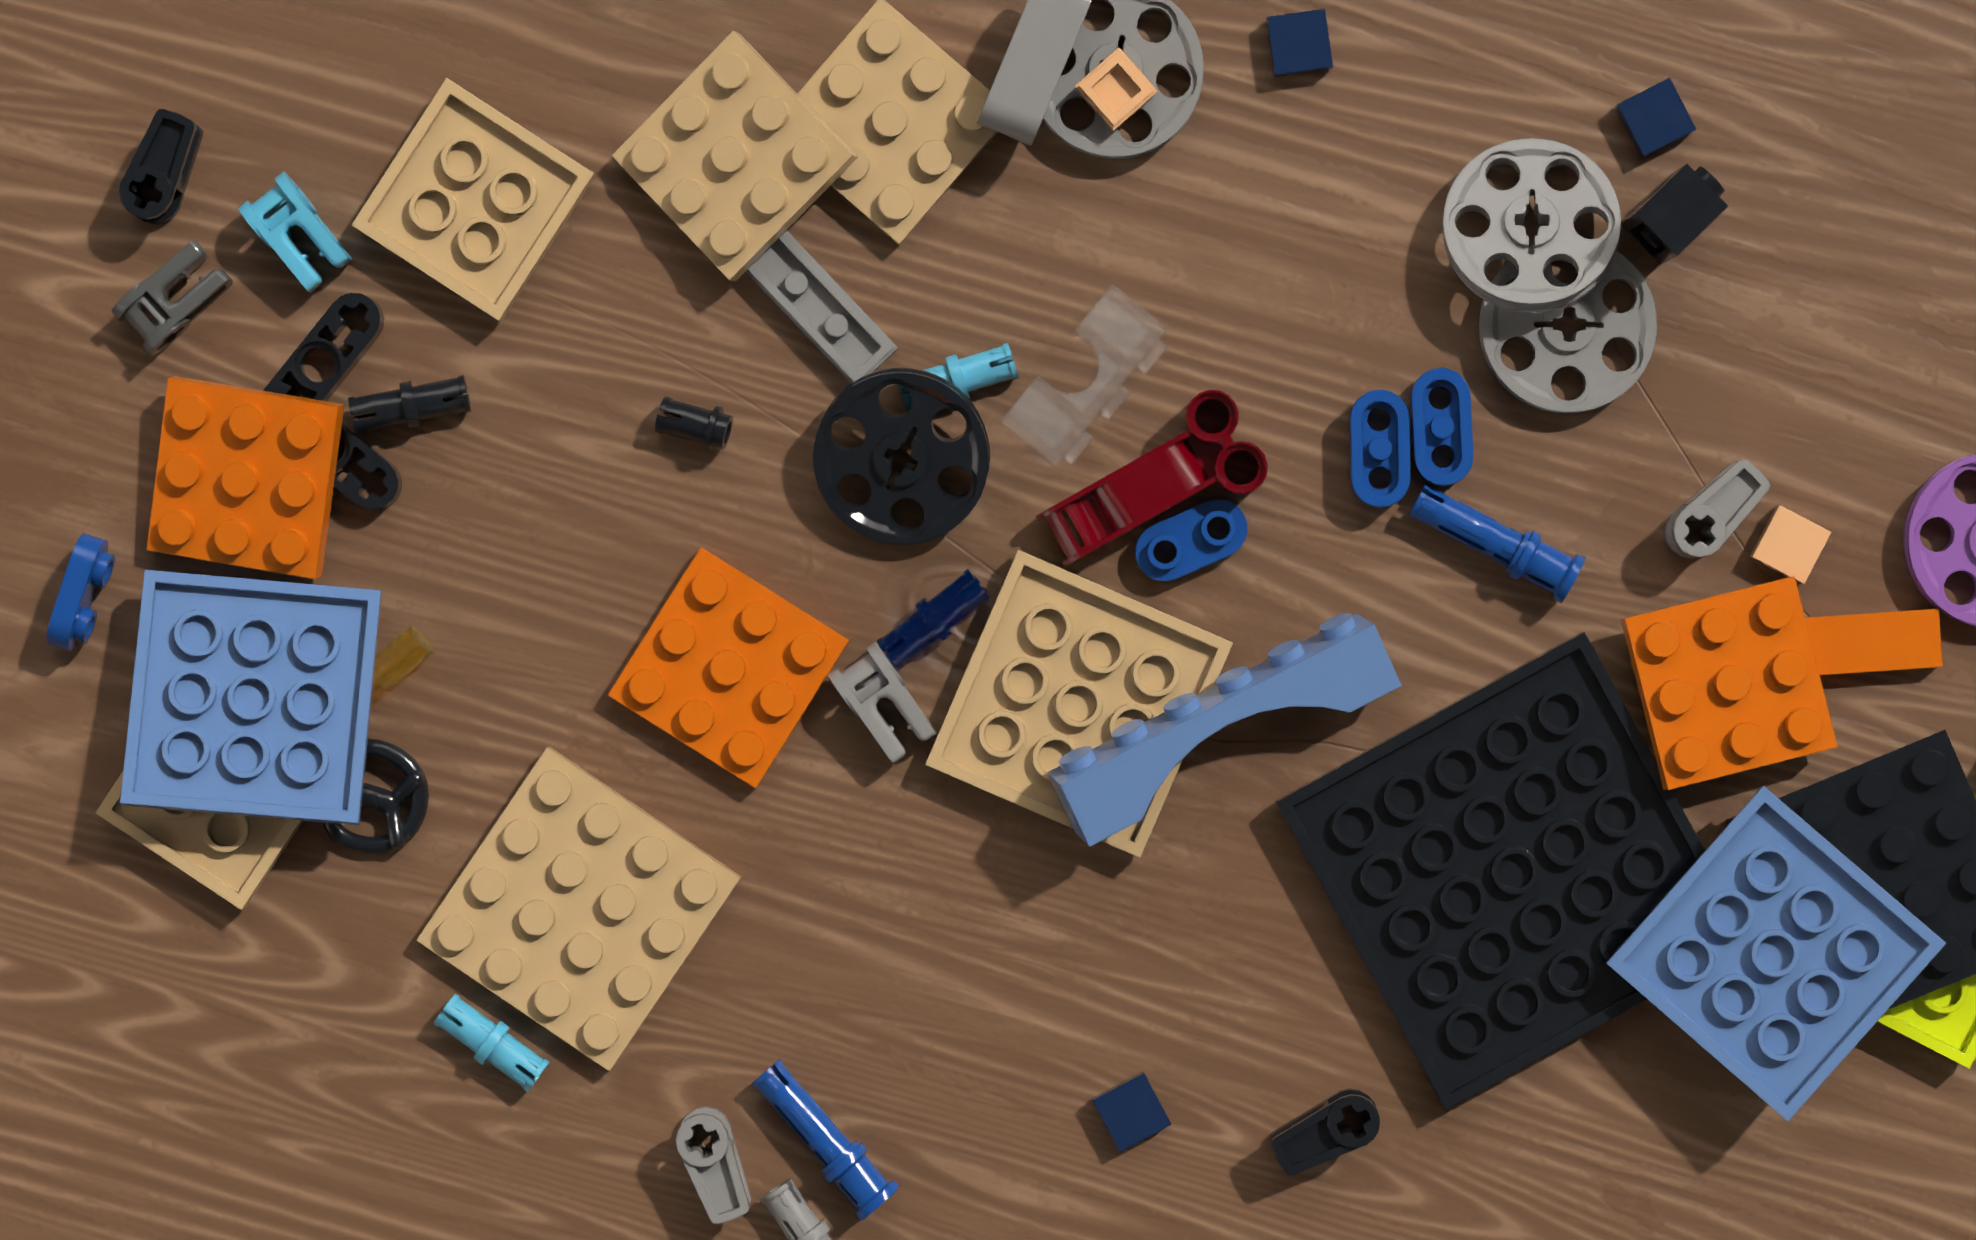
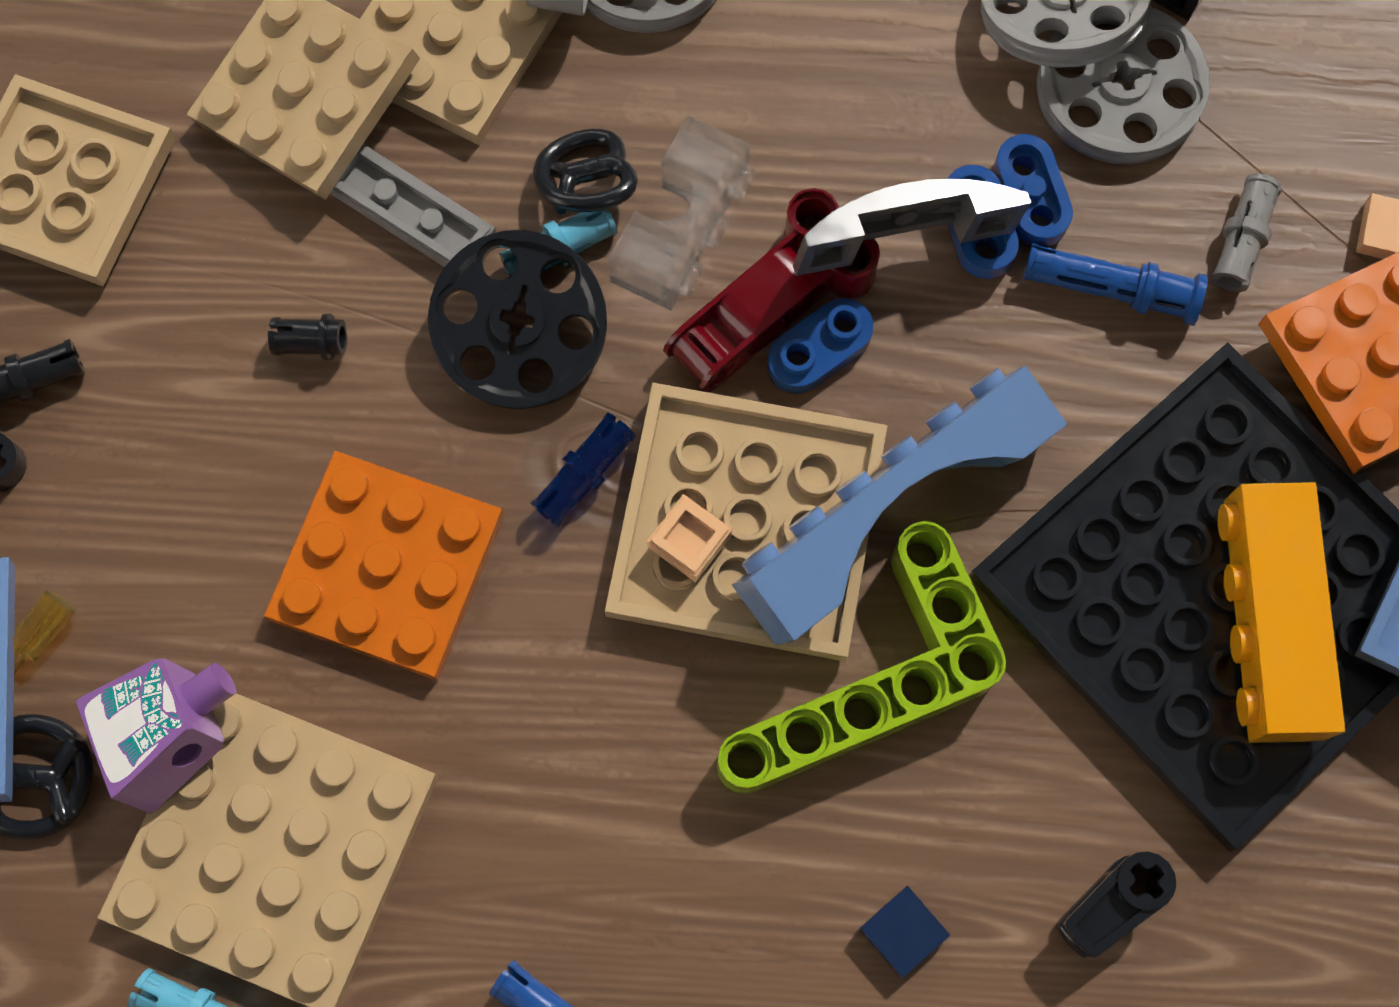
camera: 15 degrees left, 15 degrees down
(496, 787) = (155, 729): none -> medium lavender torso
(885, 684) = (537, 539): light grey piece -> none
(998, 309) = (584, 172): none -> black piece
(1018, 715) = (689, 538): none -> light nougat tile
(1167, 892) = (883, 690): none -> lime beam
(1366, 453) = (972, 206): none -> dark grey slope
(1545, 912) = (1281, 613): none -> light orange brick
(1643, 517) = (1247, 232): none -> light grey pin
(1720, 505) = (1315, 209): light grey piece -> none

